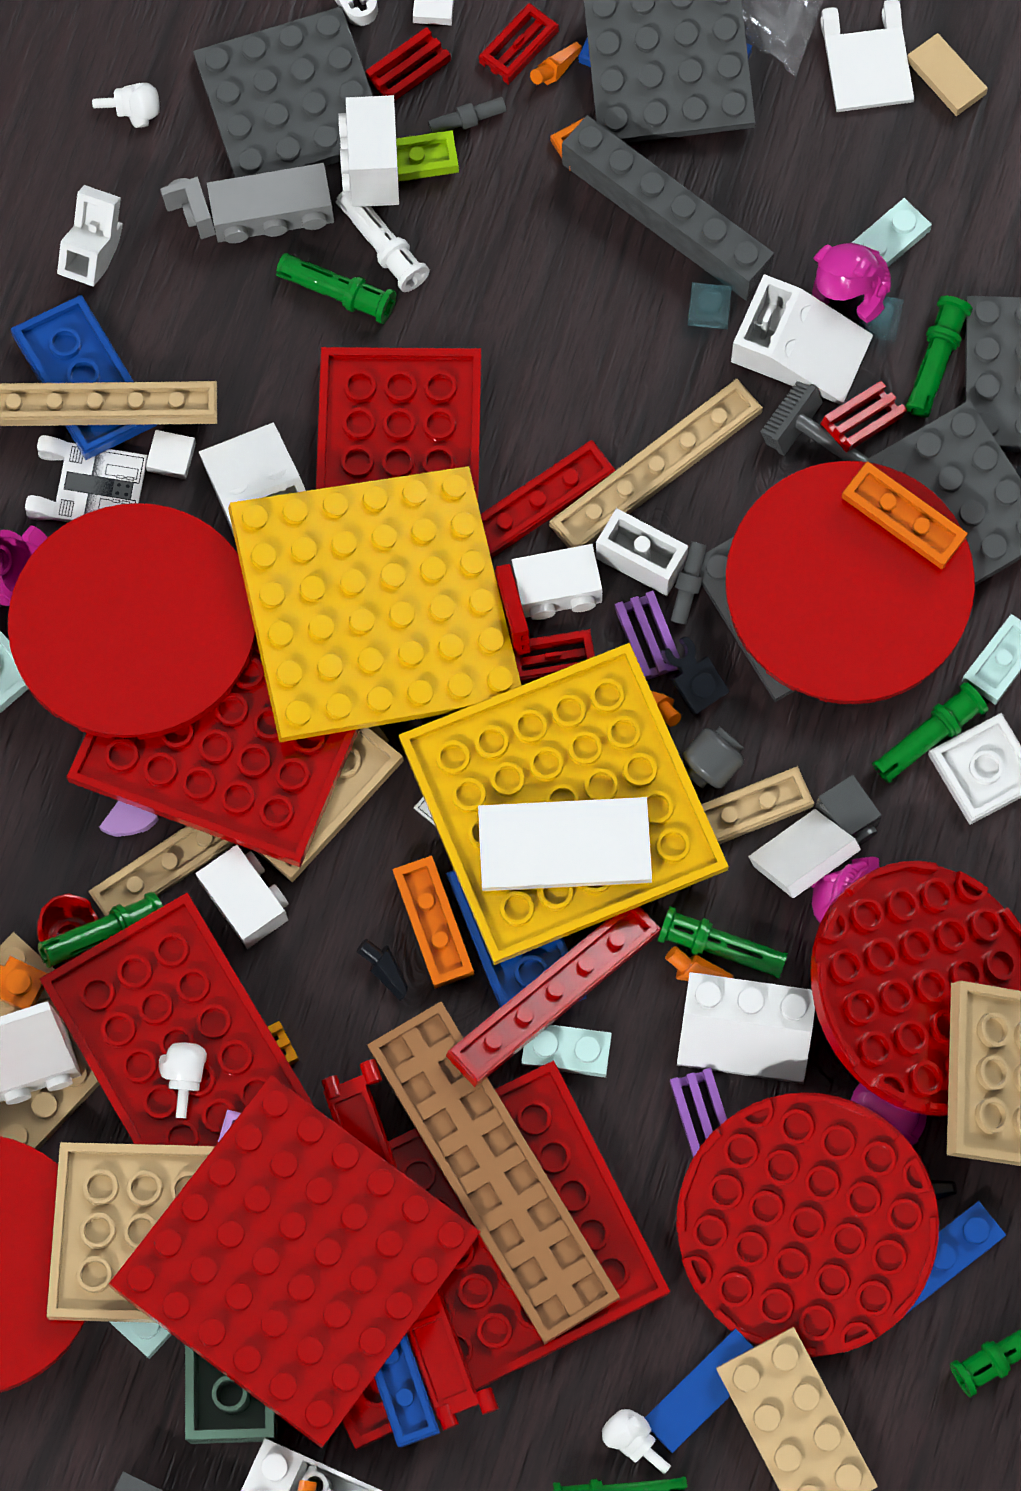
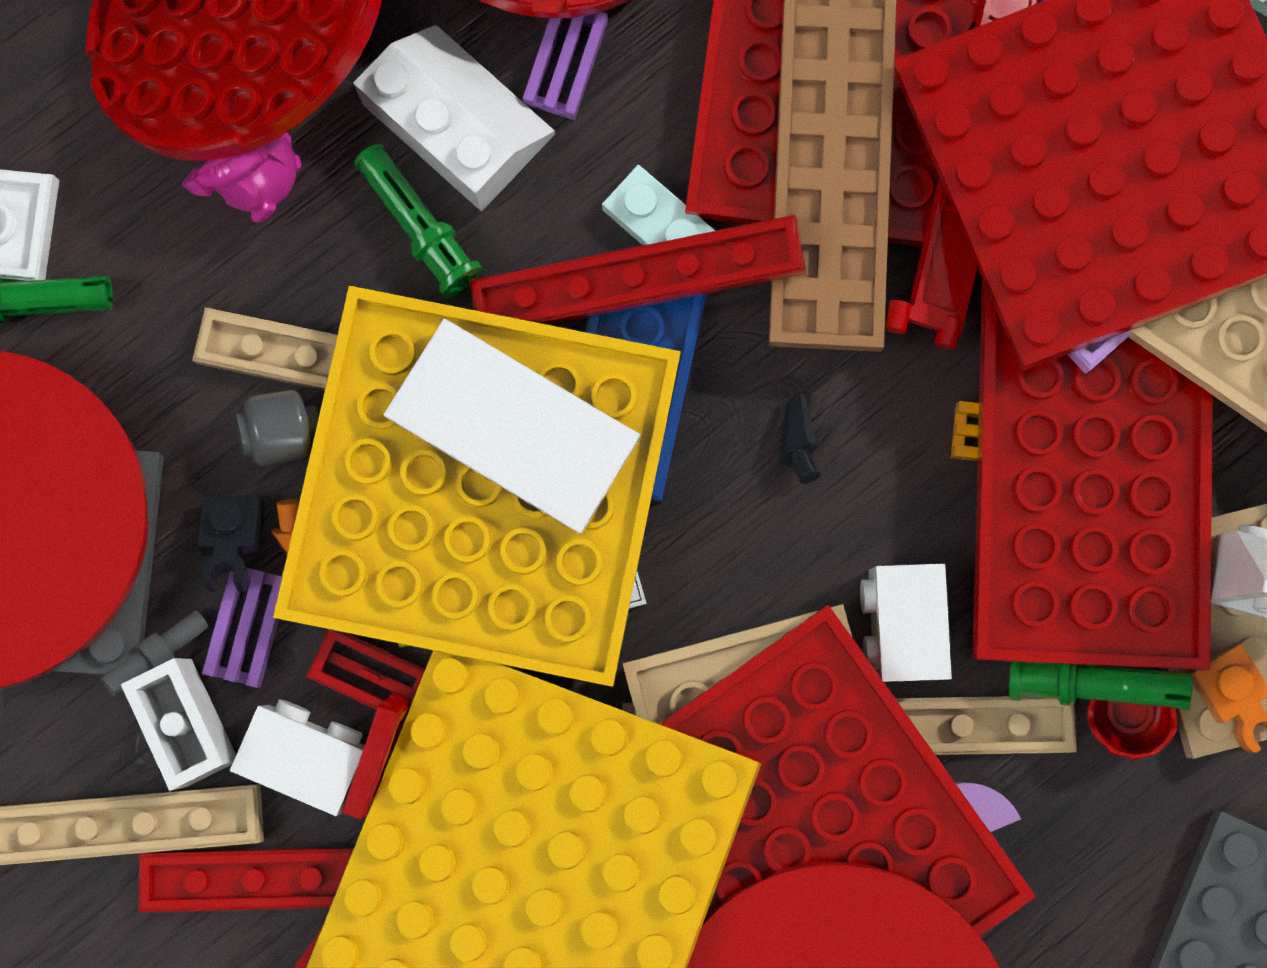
camera: 150 degrees left, 10 degrees up
(184, 1069) = (1112, 448): white piece -> none
(433, 922) = (713, 453): orange plate -> none
(692, 964) = (462, 213): orange bar -> none
(804, 853) = (255, 247): white tile -> none
(850, 809) = (174, 267): dark grey brick -> none

